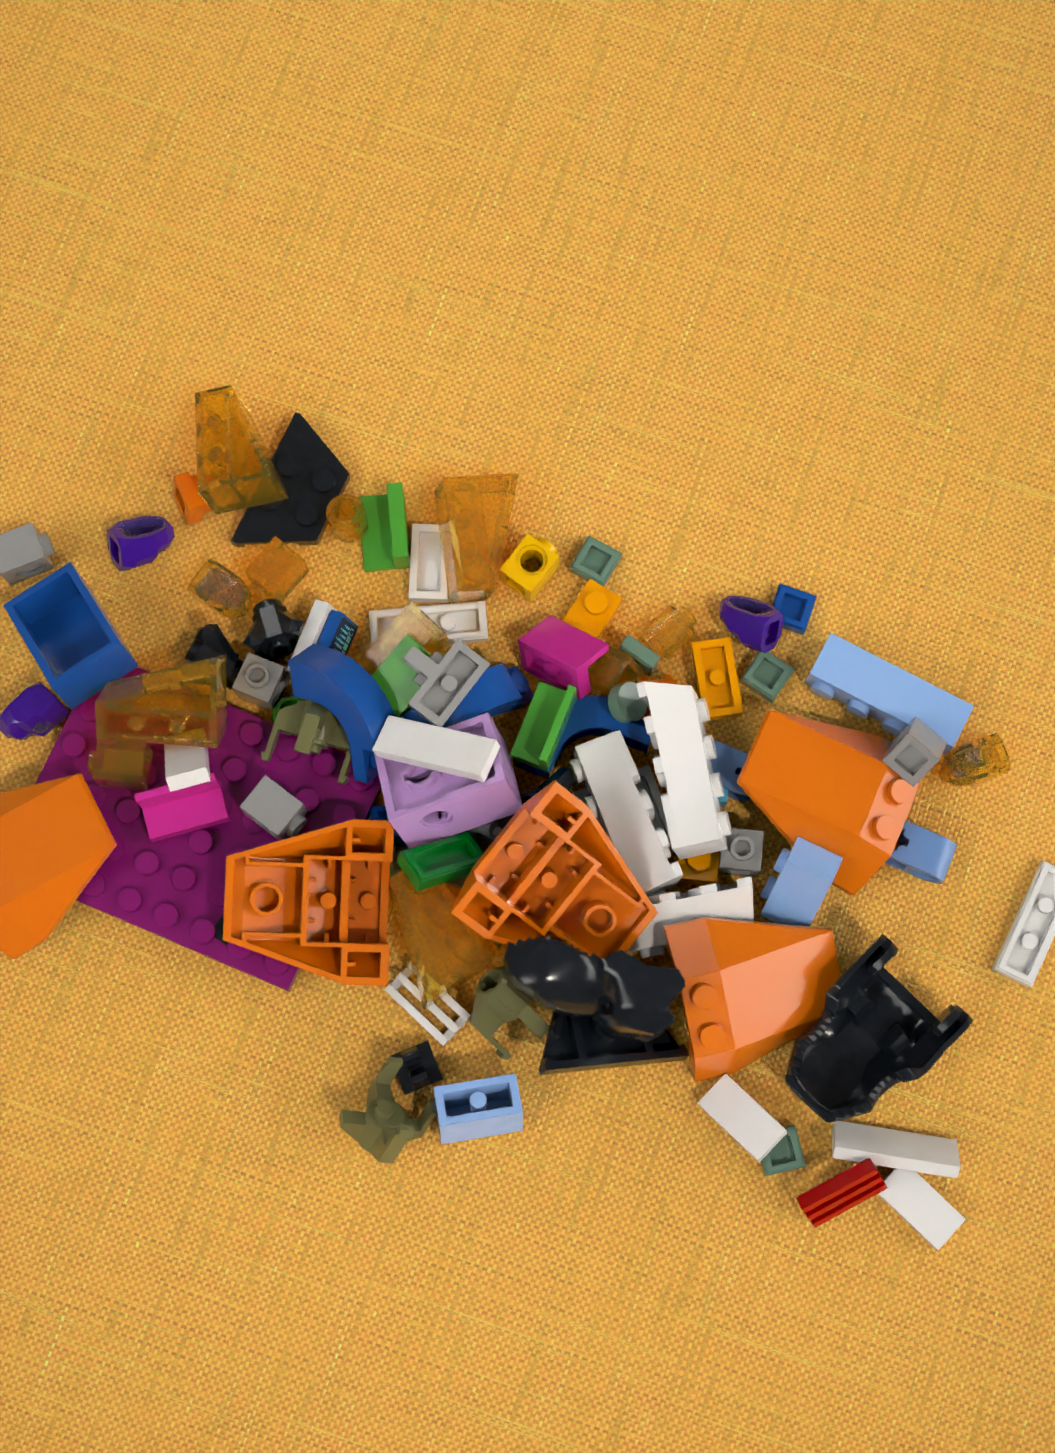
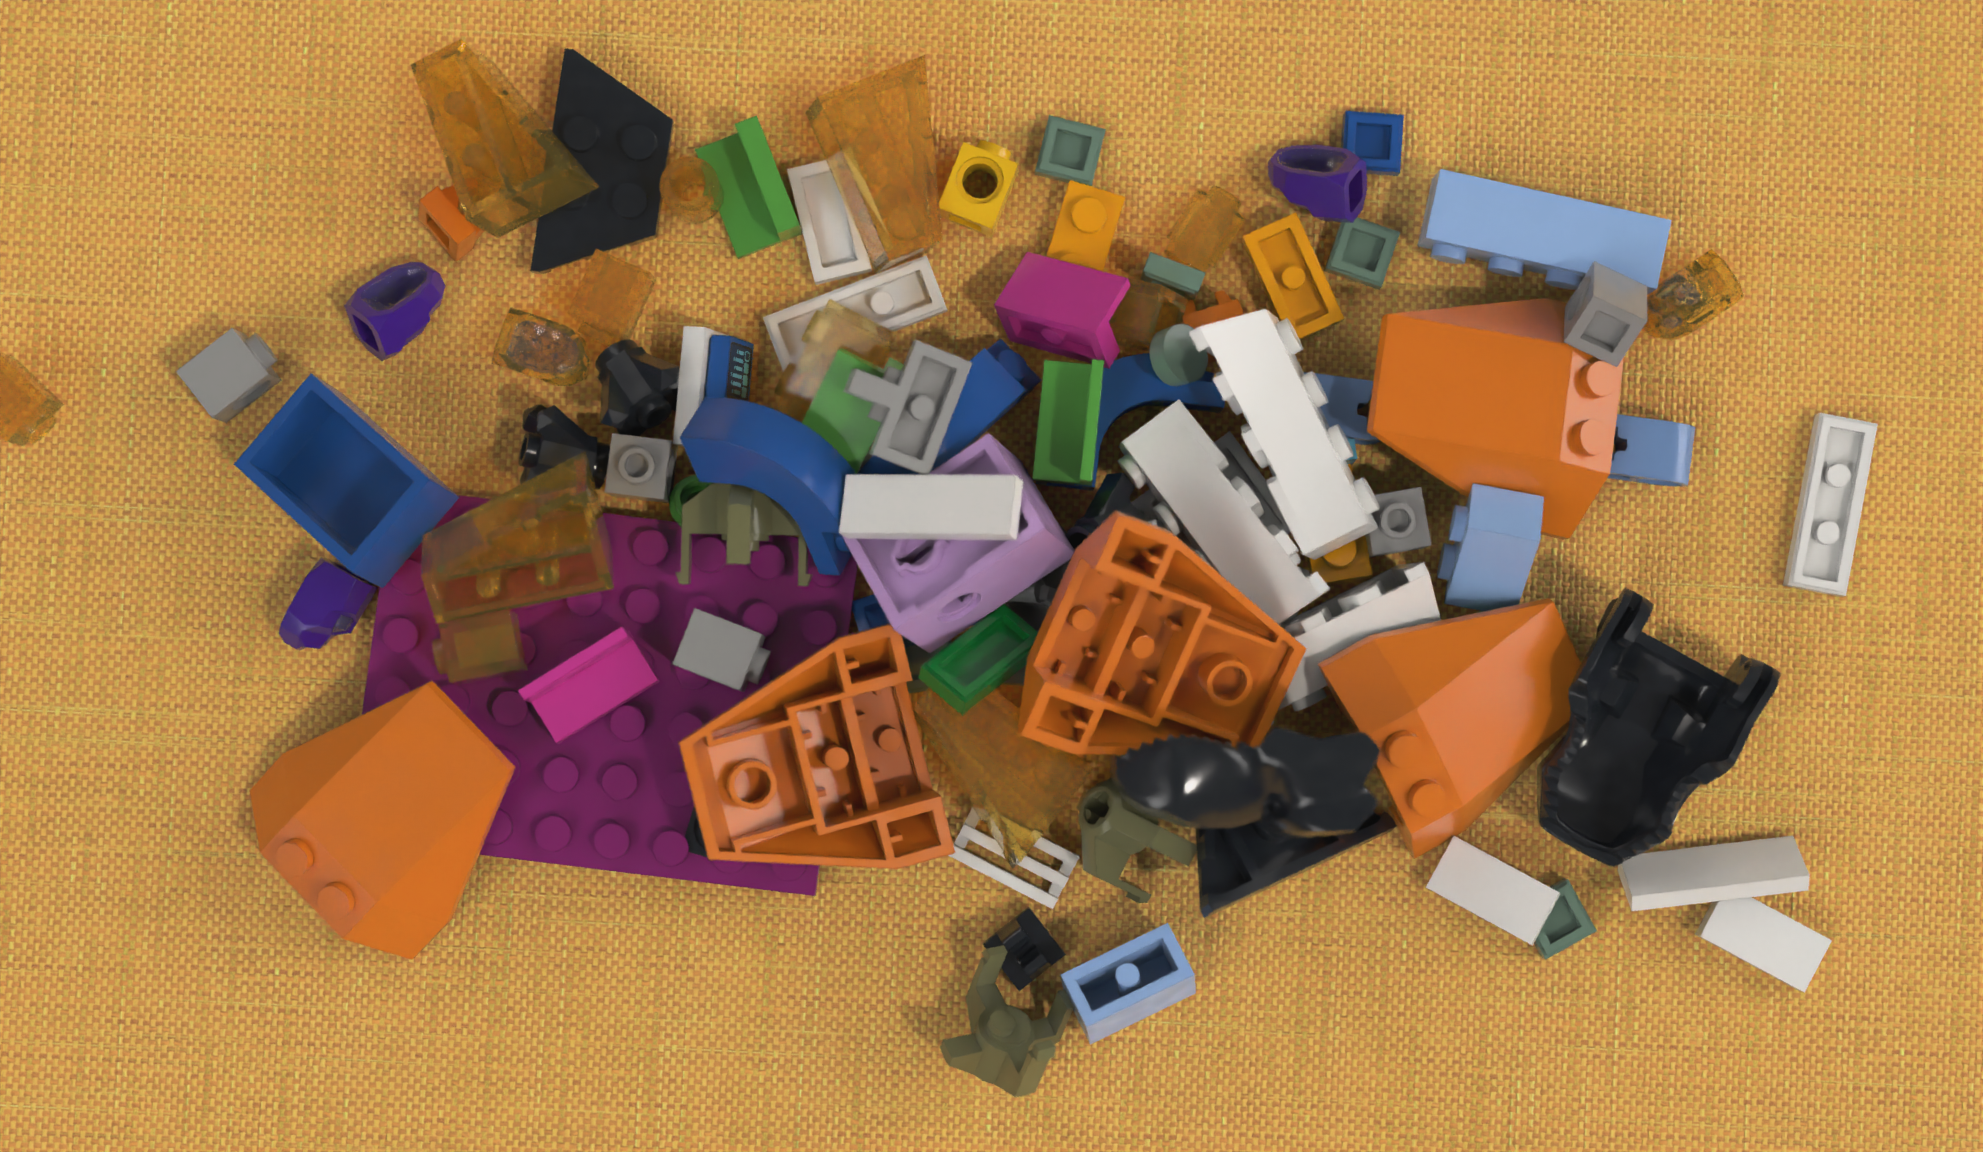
camera: 20 degrees left, 10 degrees up
(186, 766) = (579, 629): white tile -> none
(841, 1192) = (1655, 953): red tile -> none

